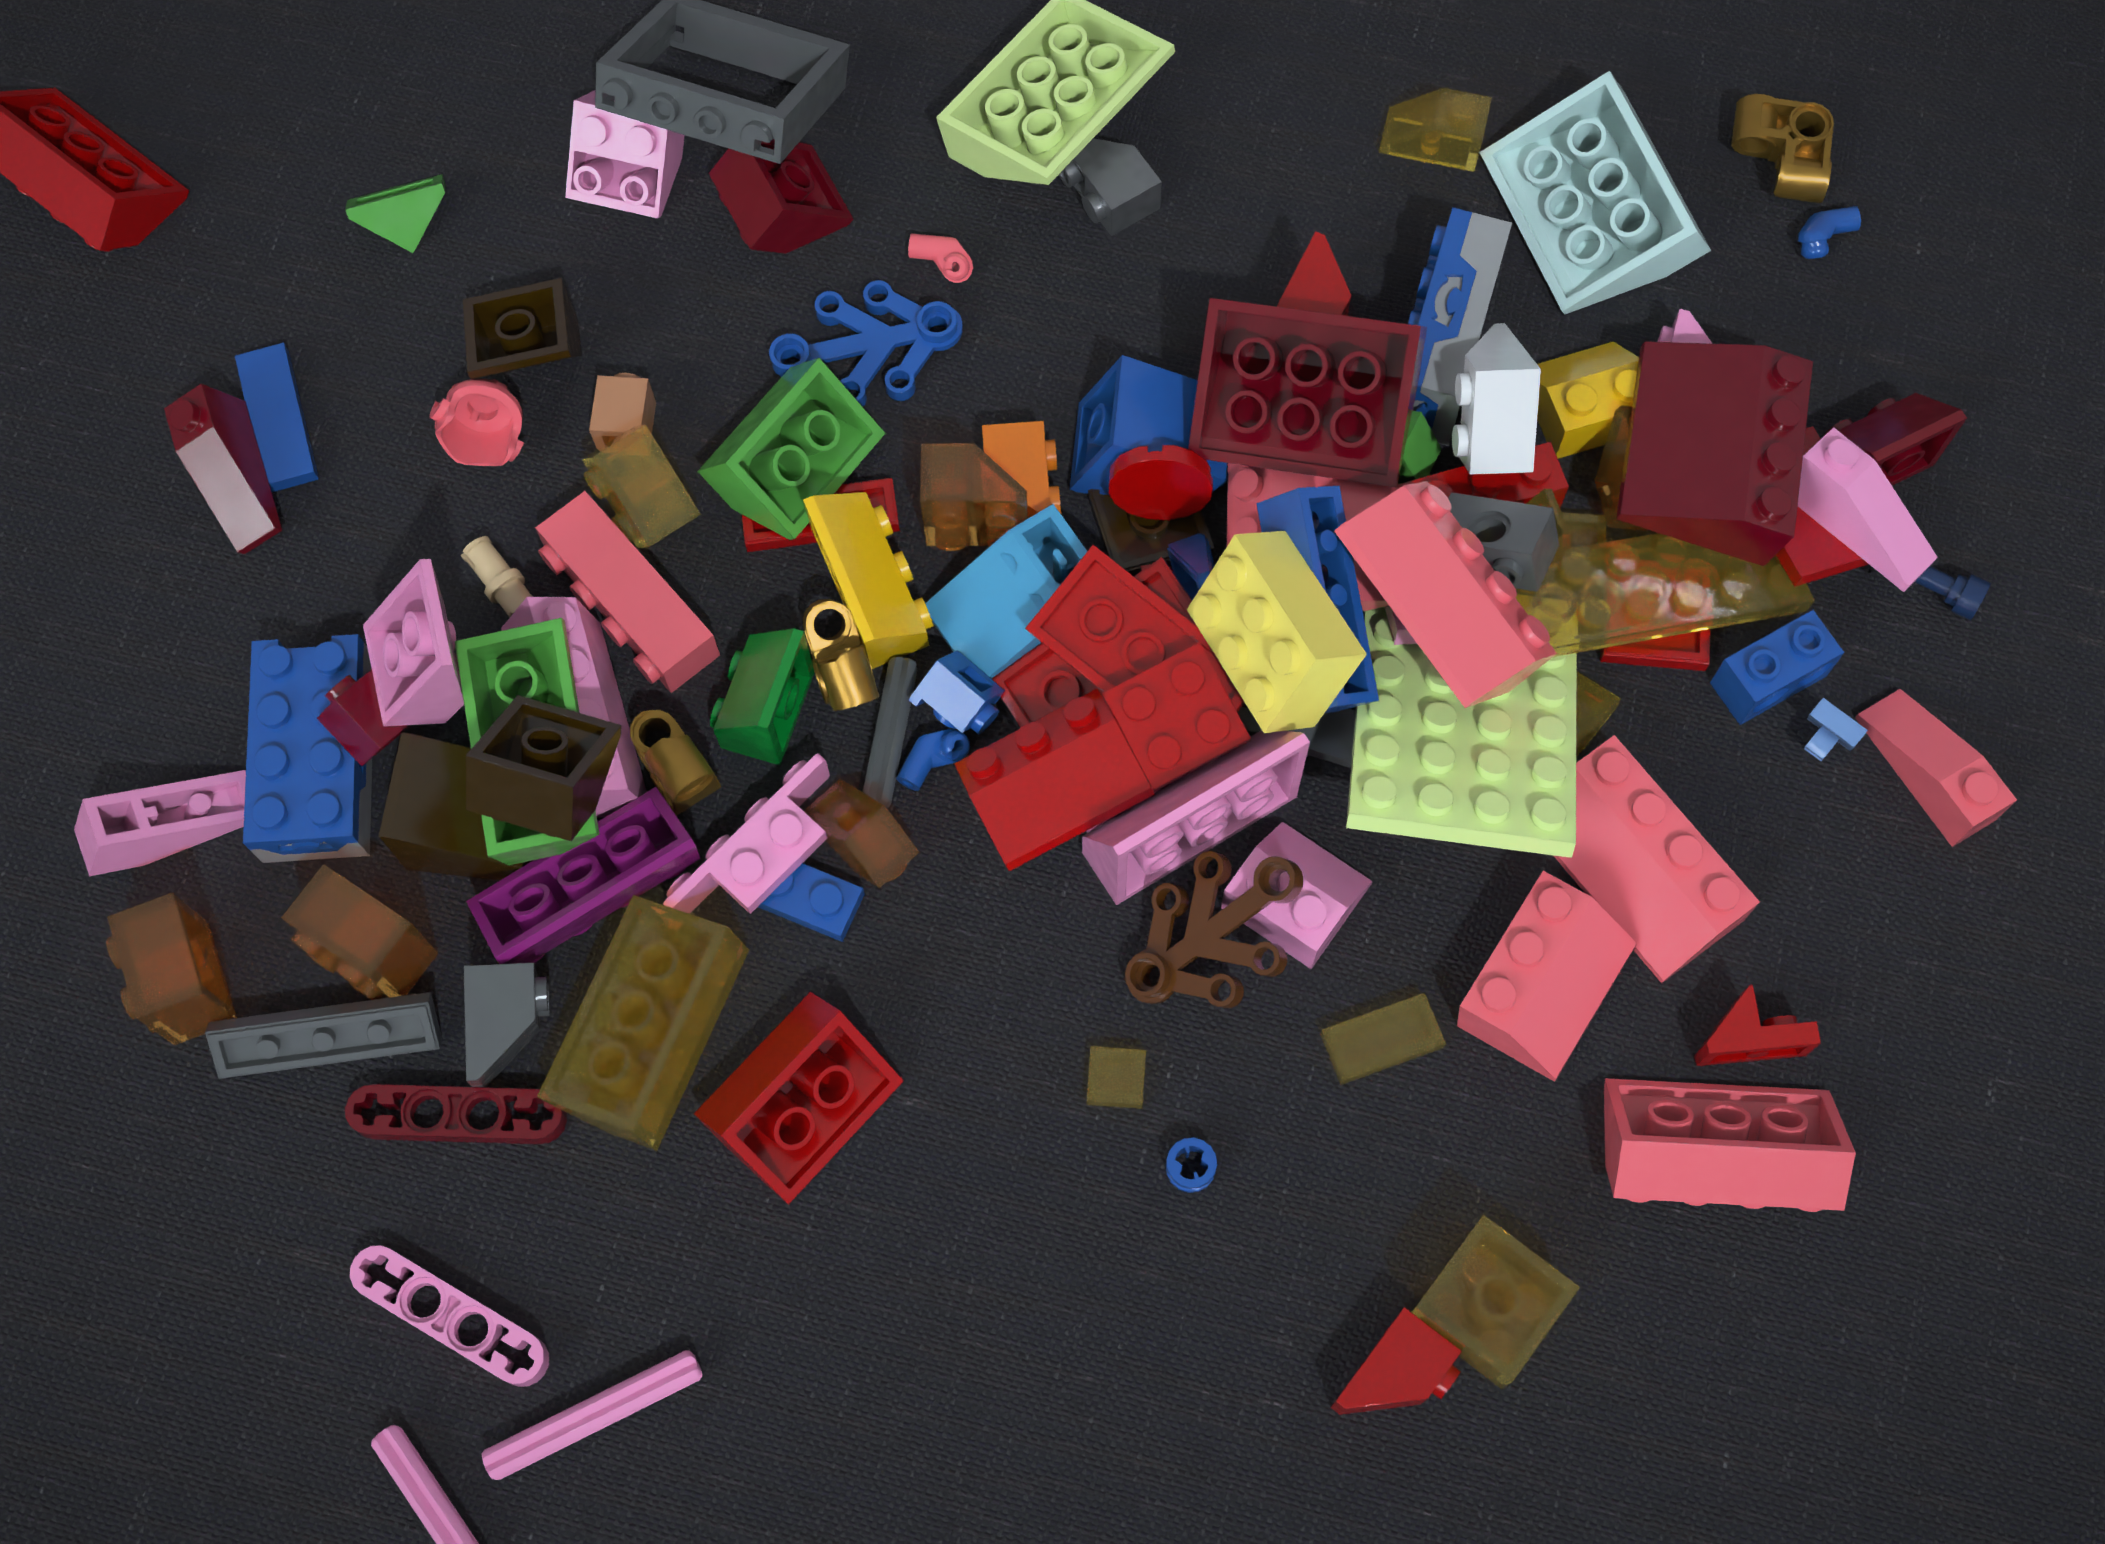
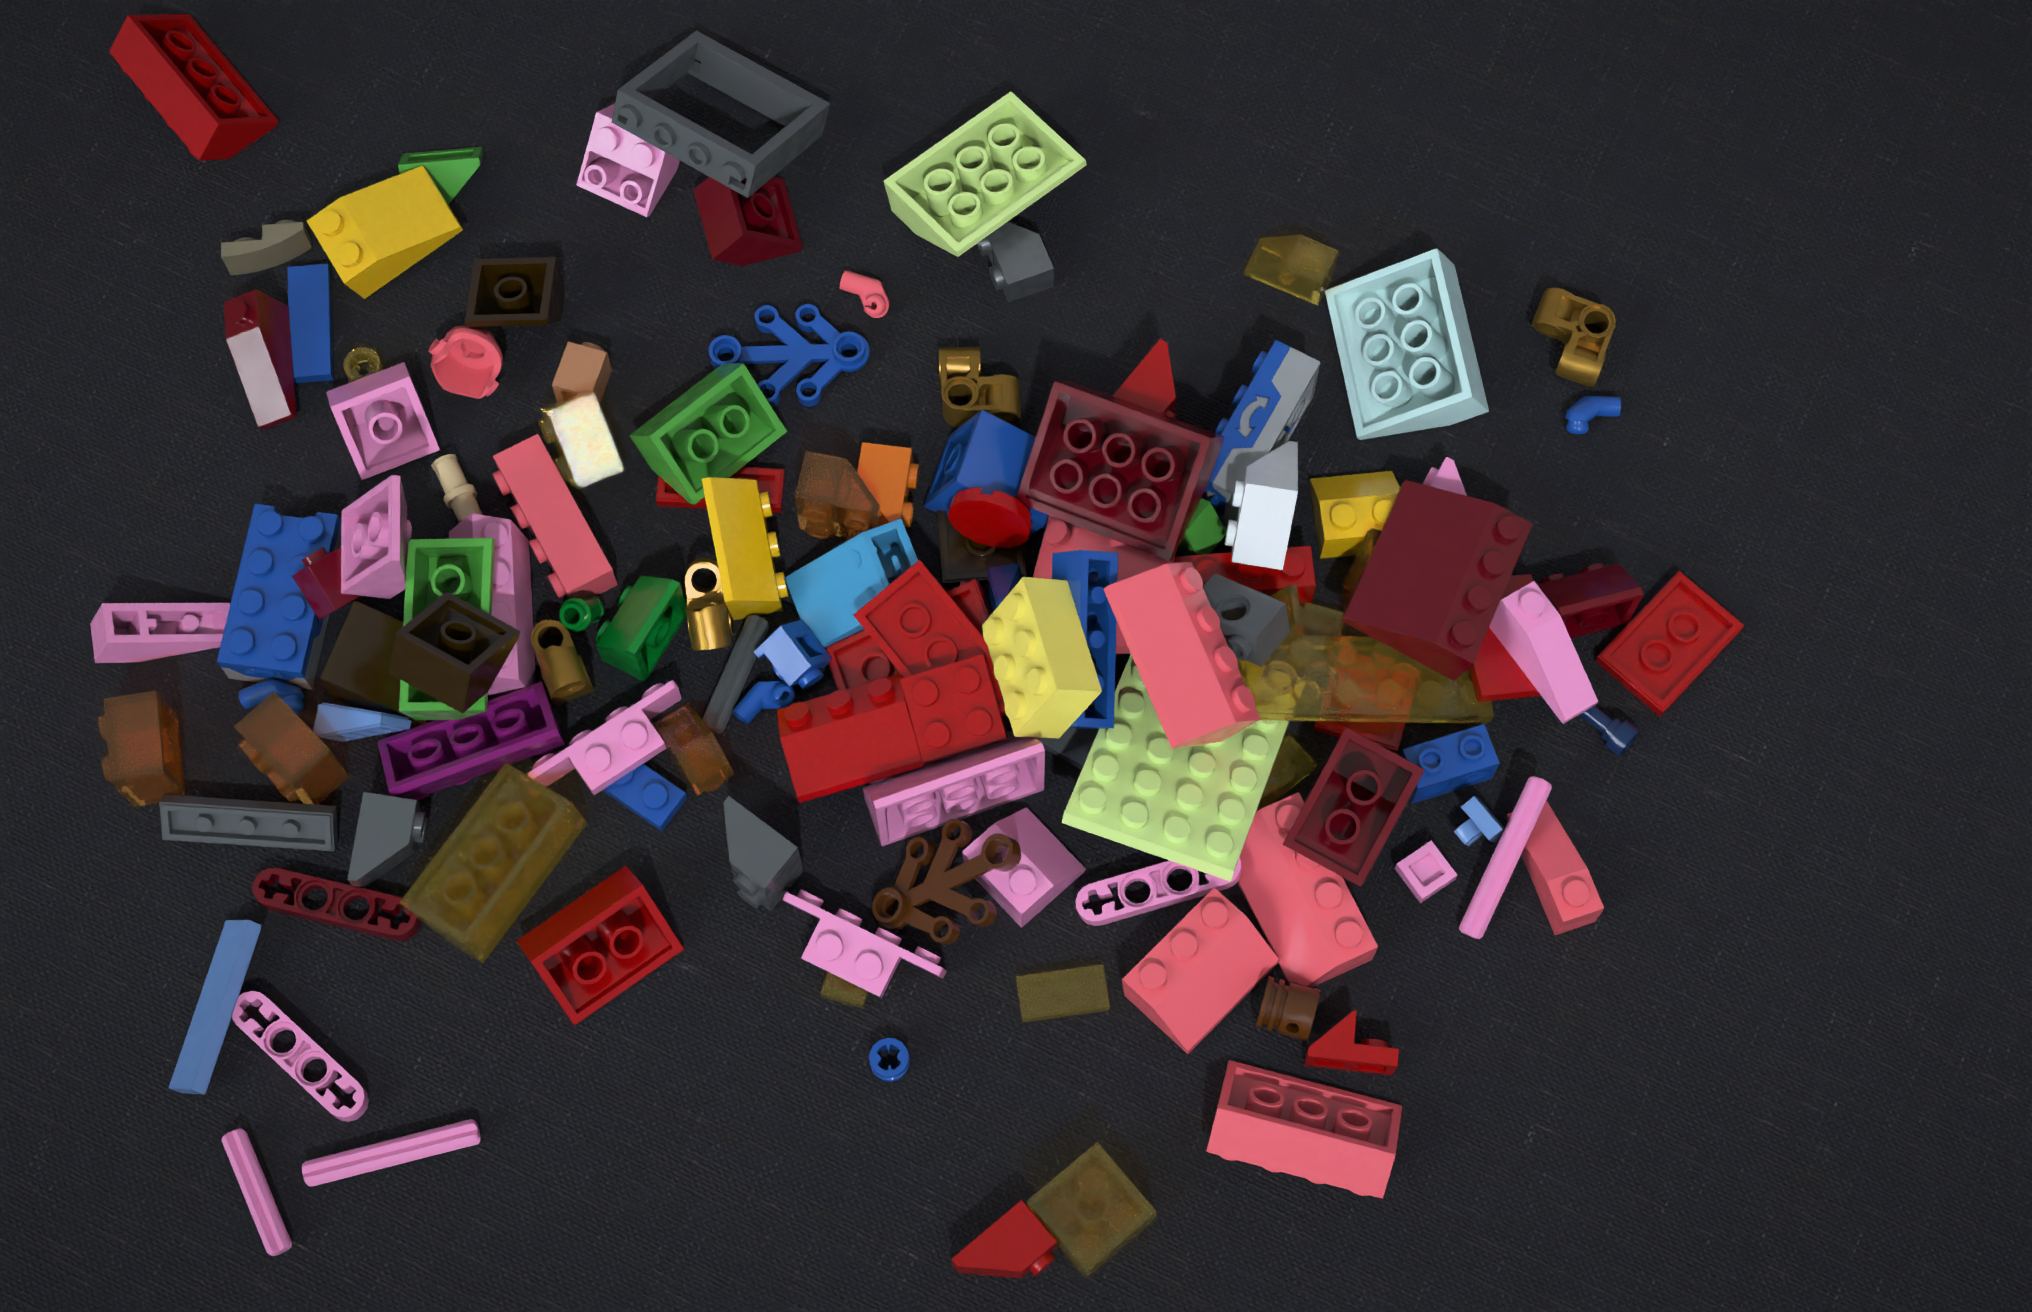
camera: 10 degrees right, 0 degrees up
(217, 333) = (278, 245): none -> dark tan slope
(299, 875) = (255, 694): none -> blue arm
(328, 1277) = (215, 1007): none -> medium blue tile
(338, 457) = (359, 356): none -> clear yellow bush
(344, 287) = (384, 229): none -> yellow slope
(390, 513) = (382, 421): none -> bright pink slope
(430, 885) = (351, 723): none -> medium blue slope
(684, 695) = (578, 613): none -> green pin
(976, 946) = (760, 857): none -> dark grey slope
(1079, 332) = (962, 379): none -> pearl gold piece
(1120, 1041) = (855, 953): none -> bright pink bracket
(1472, 892) = (1160, 893): none -> bright pink beam
(1665, 1000) = (1288, 1008): none -> reddish brown piece
(1691, 735) = (1353, 807): none -> dark red slope
(1783, 801) = (1425, 871): none -> bright pink plate
(1876, 764) = (1505, 857): none -> bright pink axle
(1991, 477) = (1669, 643): none -> red tile

